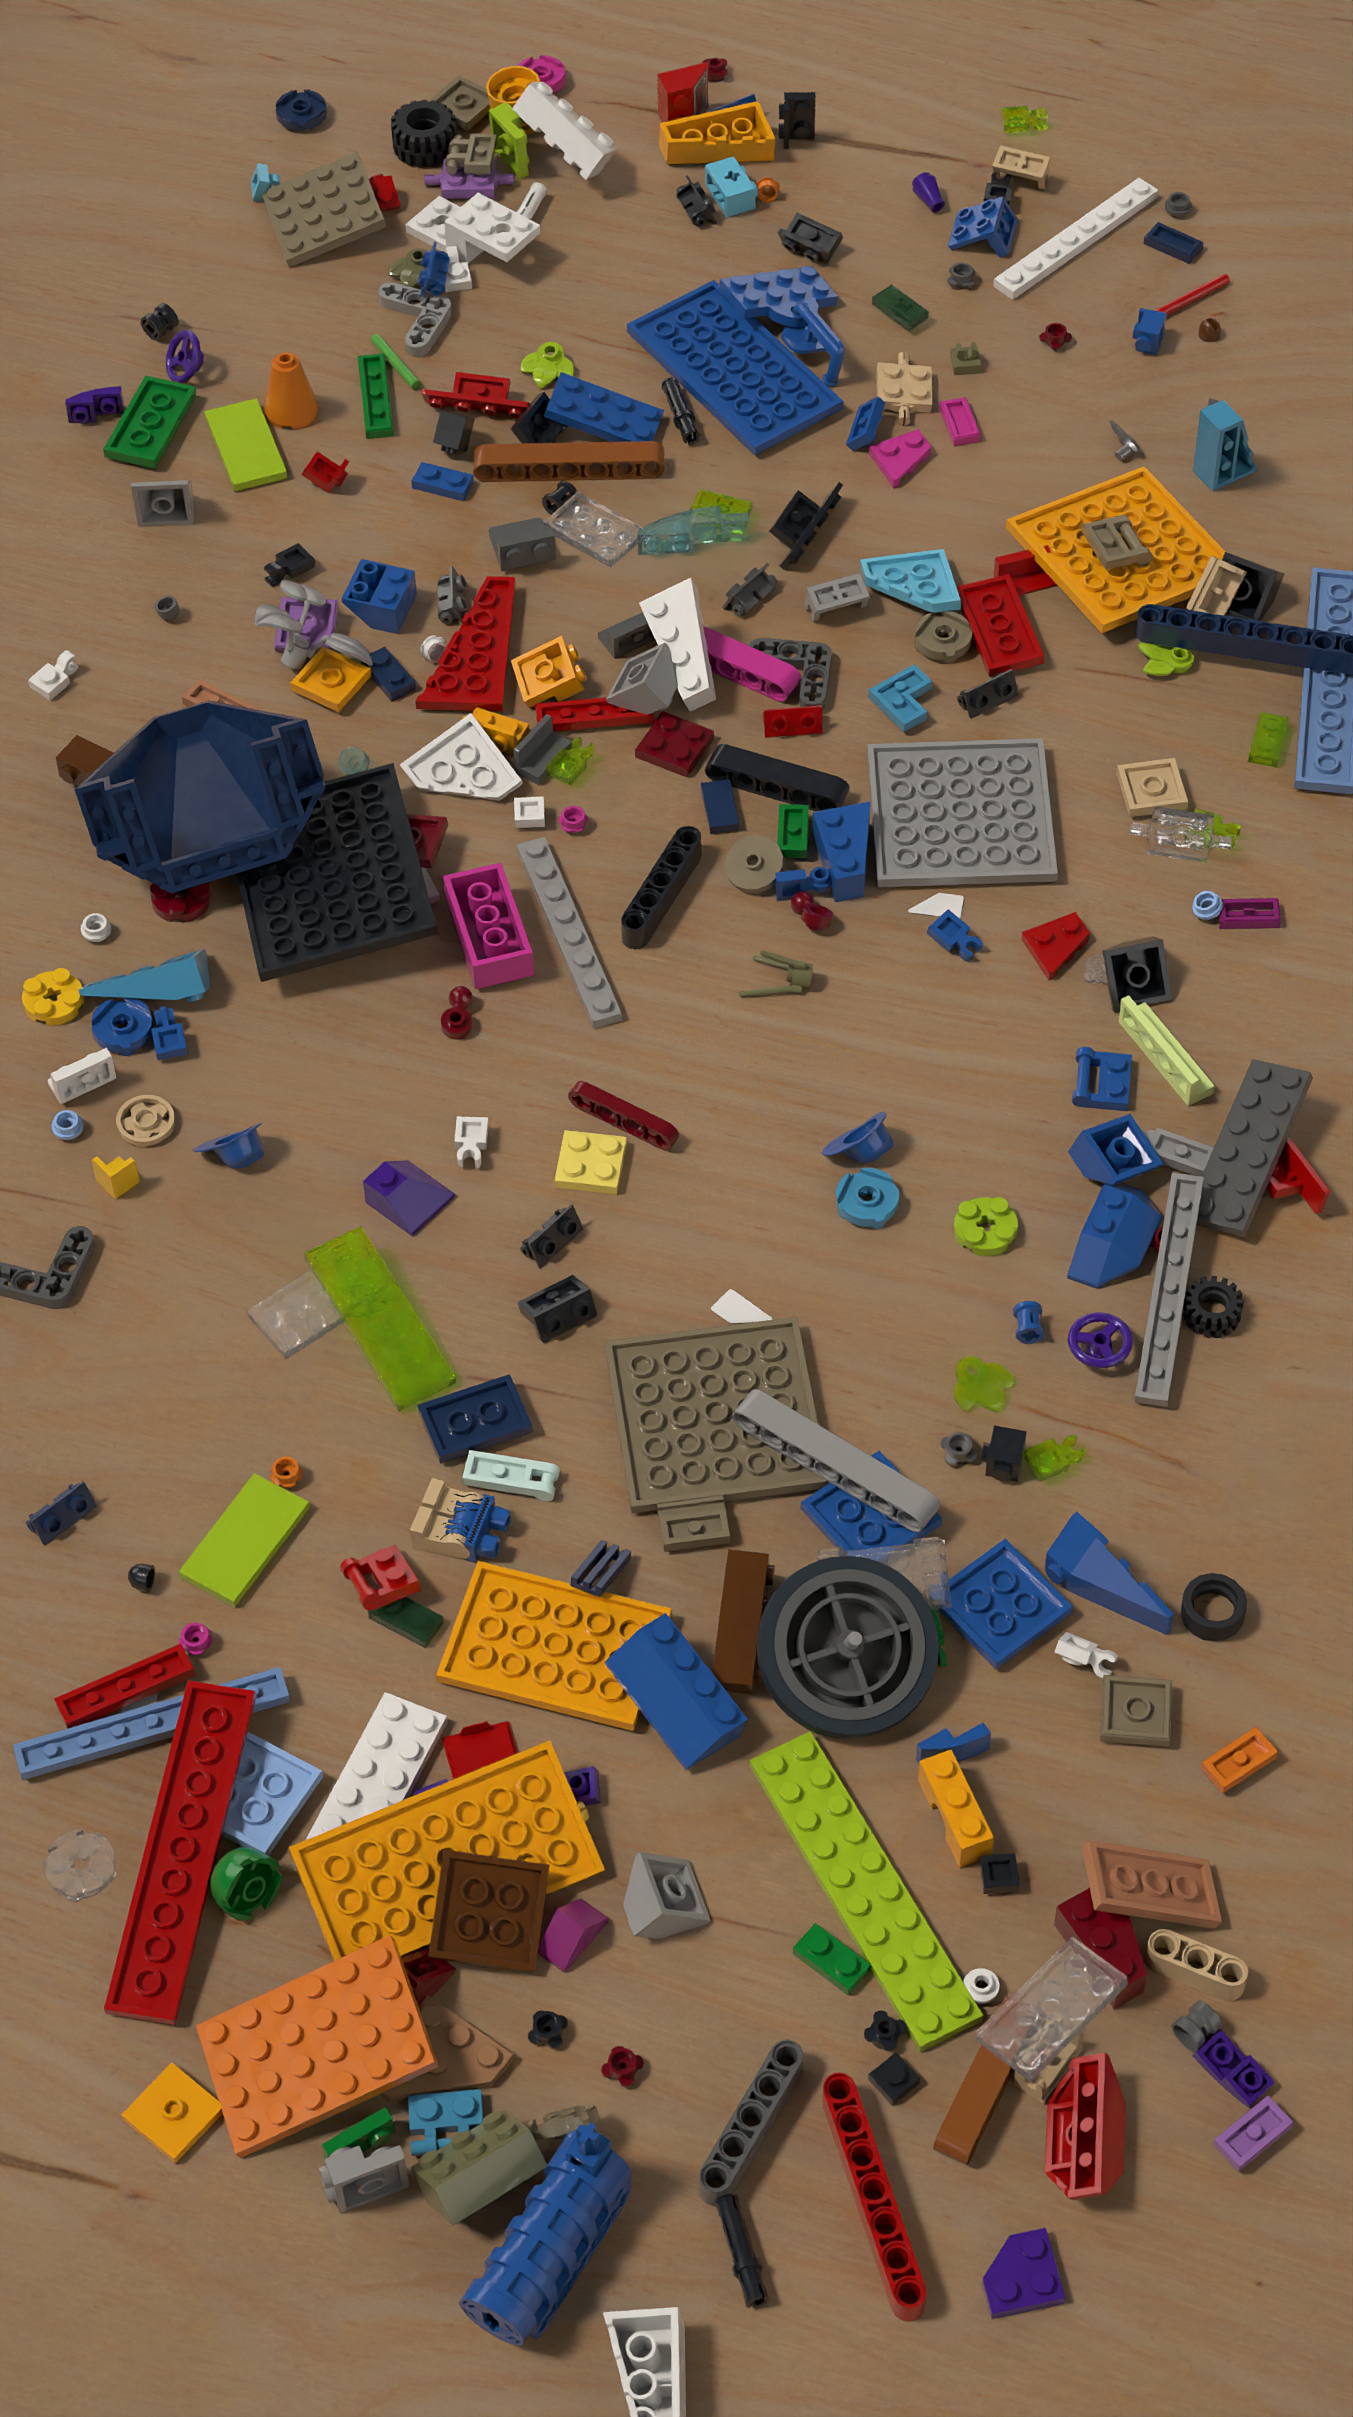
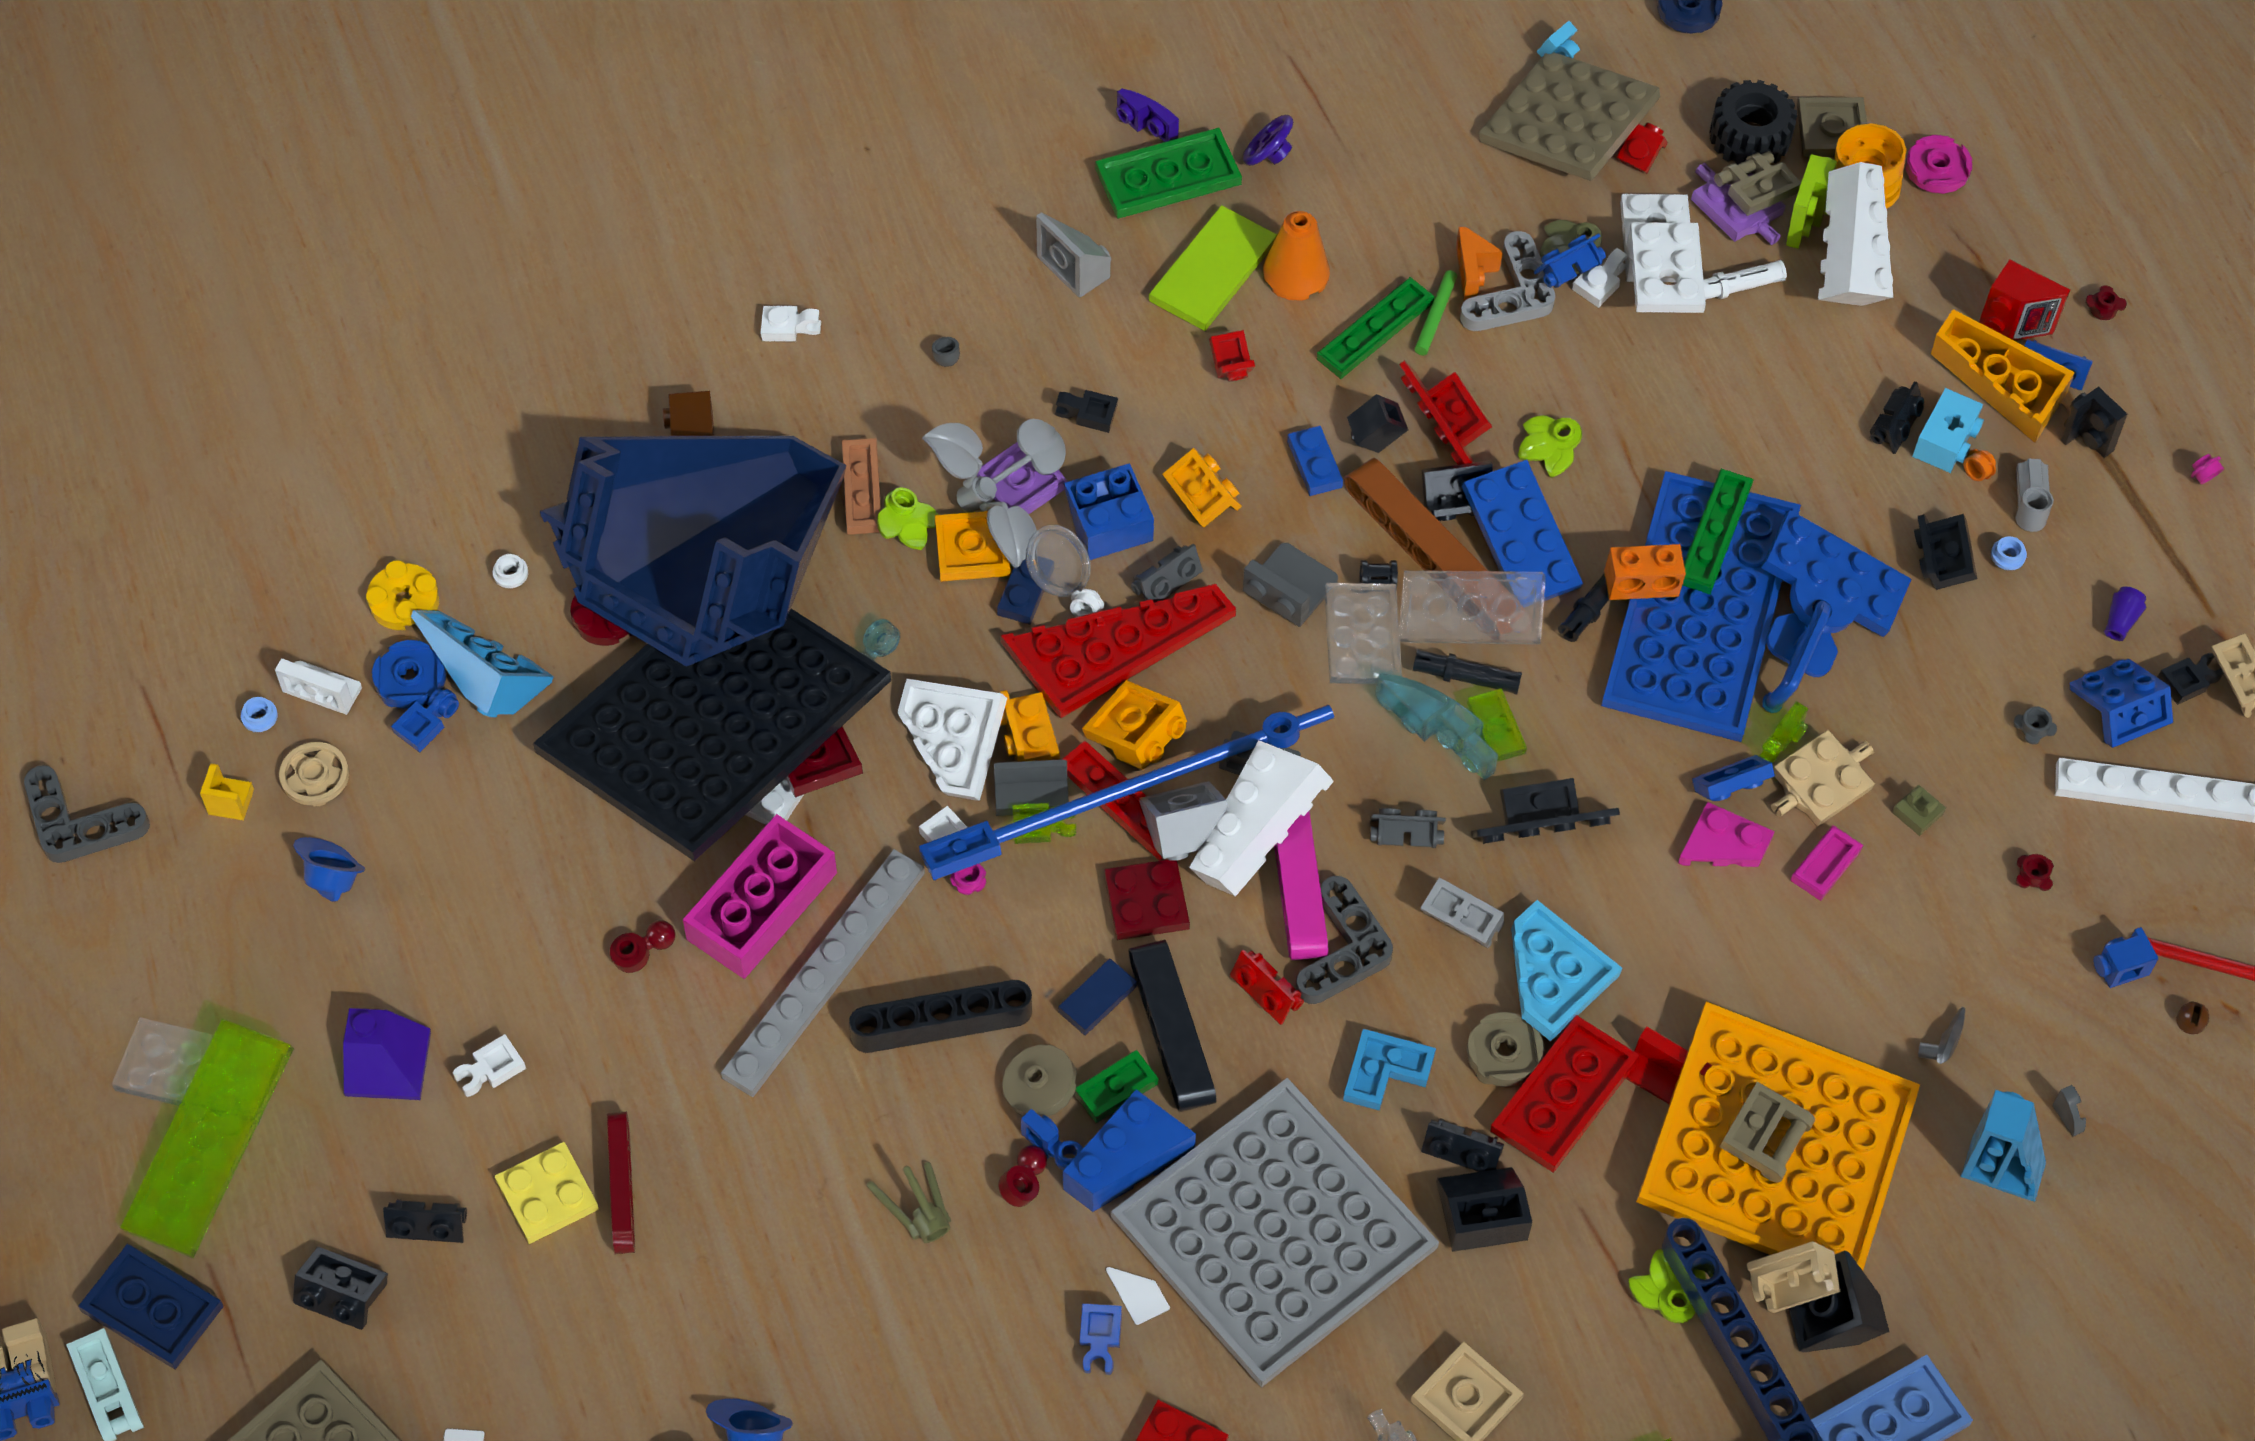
camera: 50 degrees right, 5 degrees up
(157, 323) = (1292, 90): black wheel -> none
(274, 699) = (906, 518): none -> lime plate
(380, 318) = (1474, 259): none -> orange slope
(391, 640) = (1058, 561): none -> clear piece
(407, 542) = (1201, 487): none -> light orange bracket
(563, 791) = (982, 843): none -> blue bar
(634, 462) = (1472, 607): none -> clear plate
(662, 503) = (1466, 671): none -> black pin
(694, 326) = (1716, 530): none -> green tile
(694, 369) = (1644, 572): none -> orange brick
(815, 179) = (2033, 495): none -> light grey piece
(838, 215) = (2011, 546): none -> light blue plate
(858, 380) = (1789, 729): none -> clear neon green plate
(871, 97) = (2206, 468): none -> dark pink plate
(900, 307) = (1932, 698): clear green plate -> none
(1041, 703) = (1484, 1208): none -> black slope

